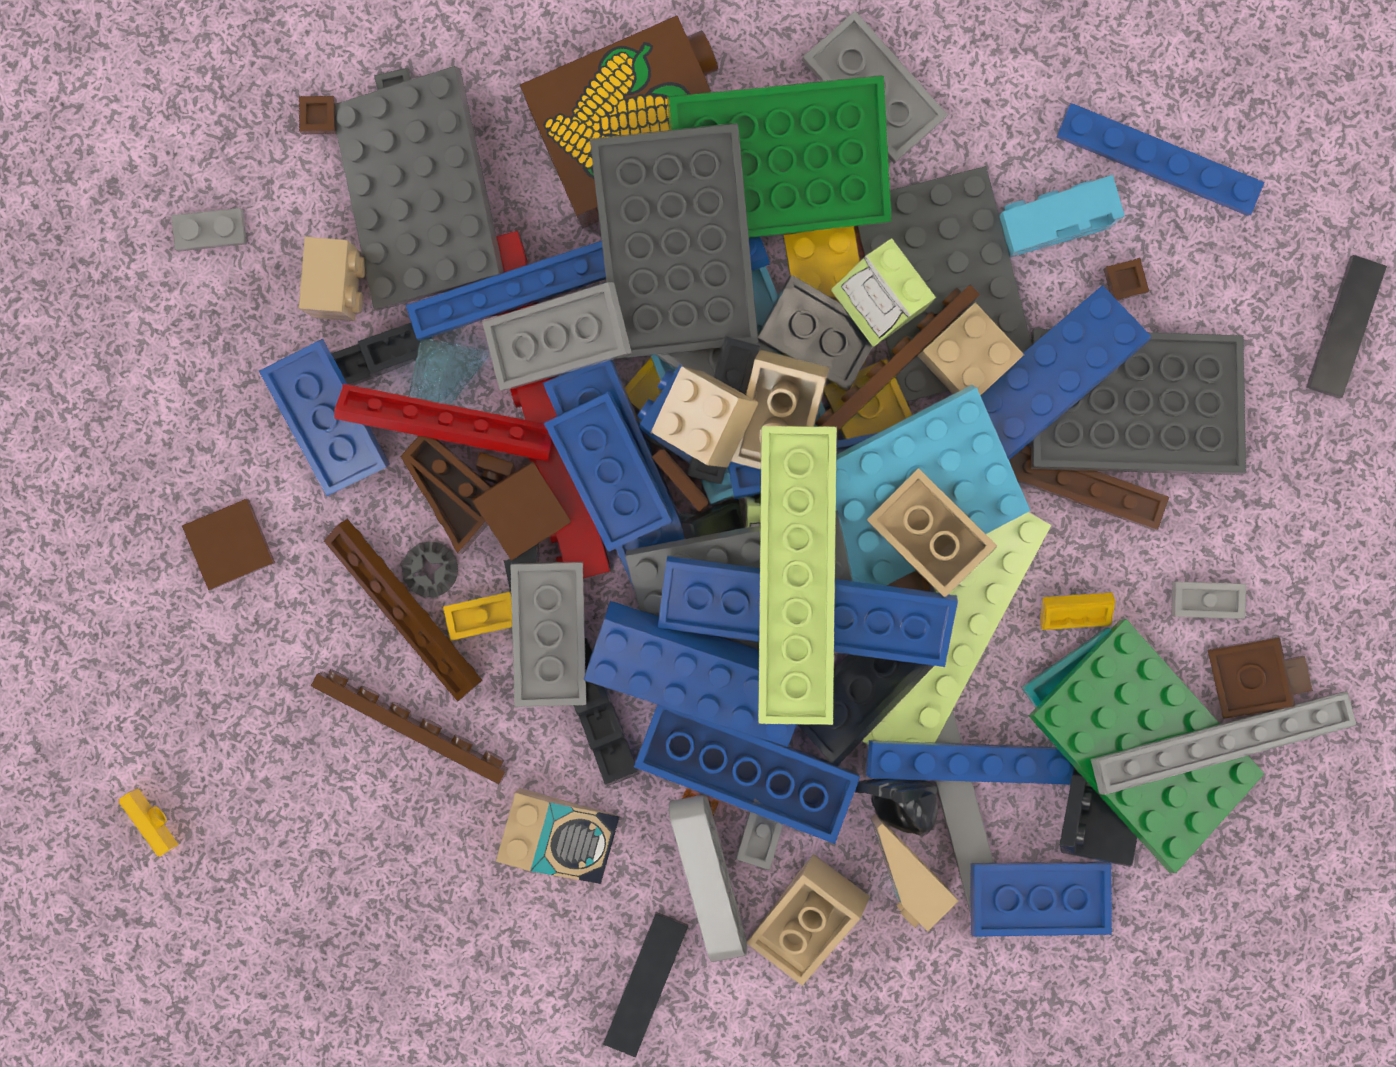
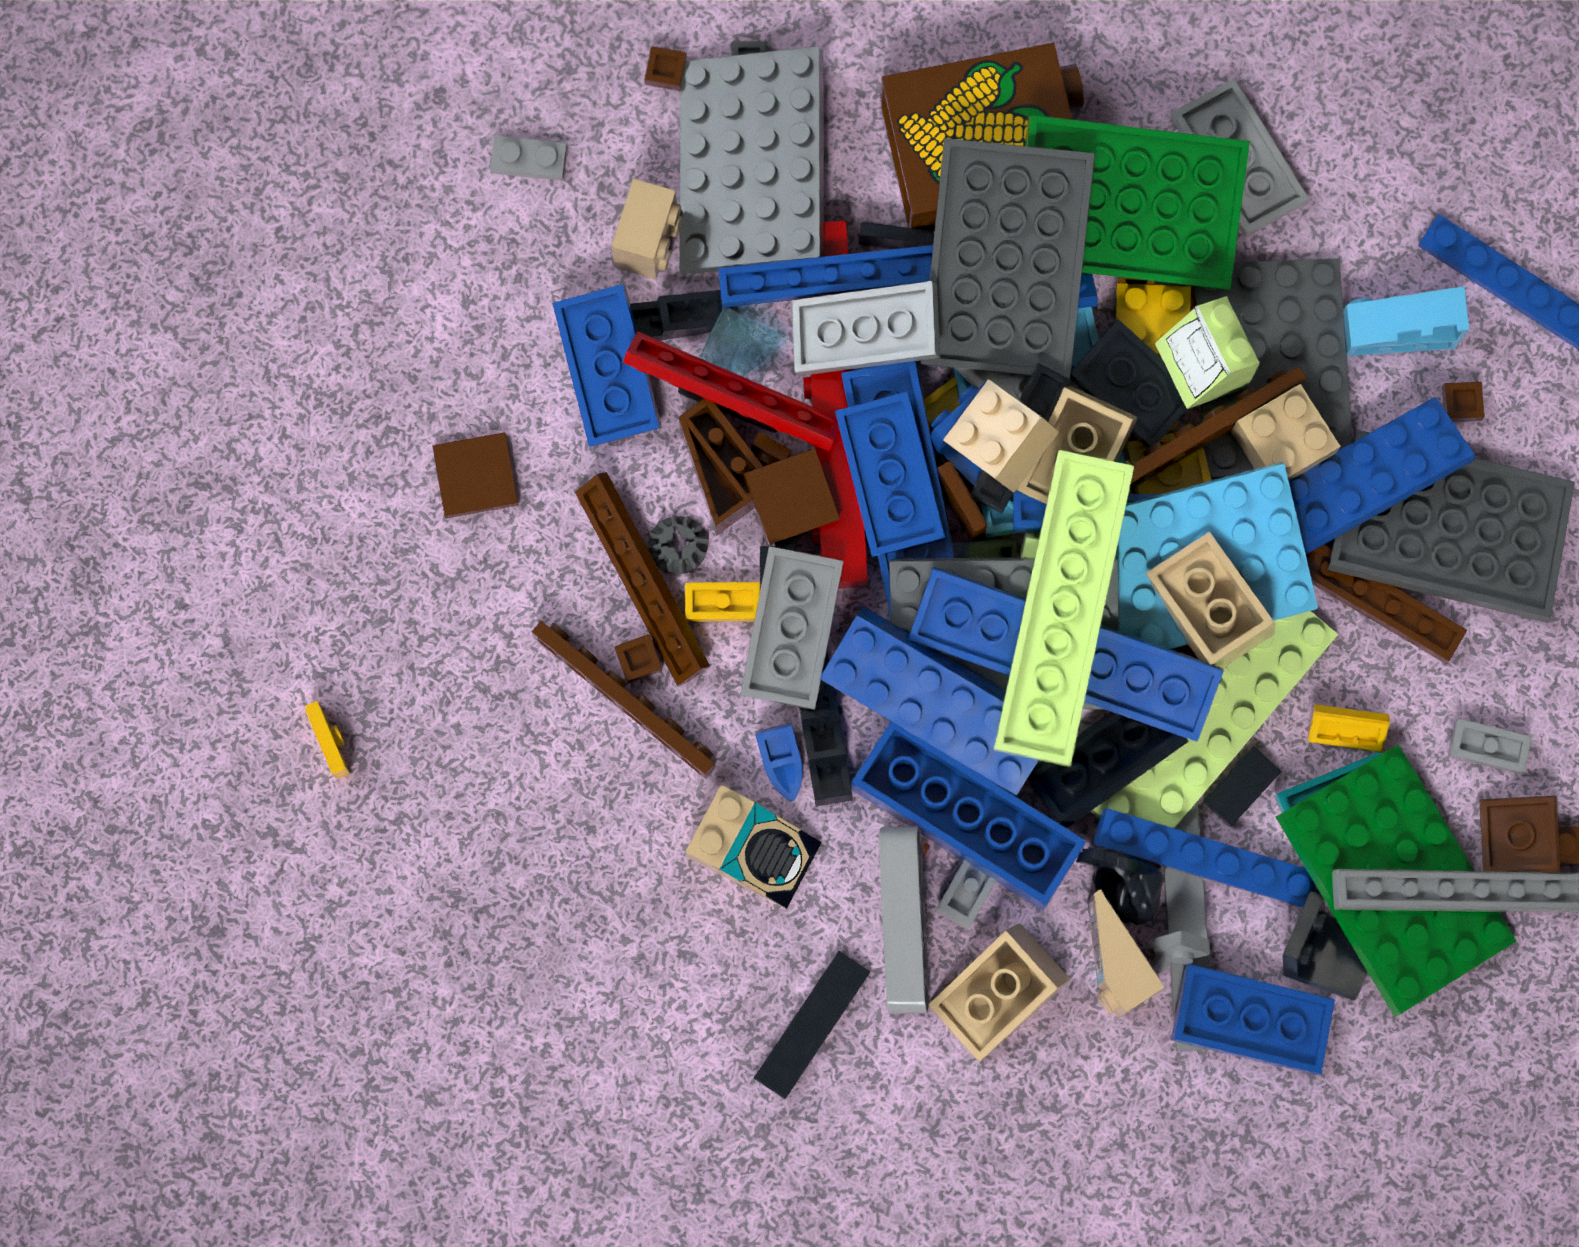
camera: 10 degrees right, 10 degrees down
(415, 685) = (638, 658): none -> reddish brown plate
(566, 235) = (893, 236): none -> black tile
(566, 749) = (781, 759): none -> blue plate
(960, 853) = (1177, 948): none -> light grey plate
(990, 684) = (1242, 786): none -> black tile

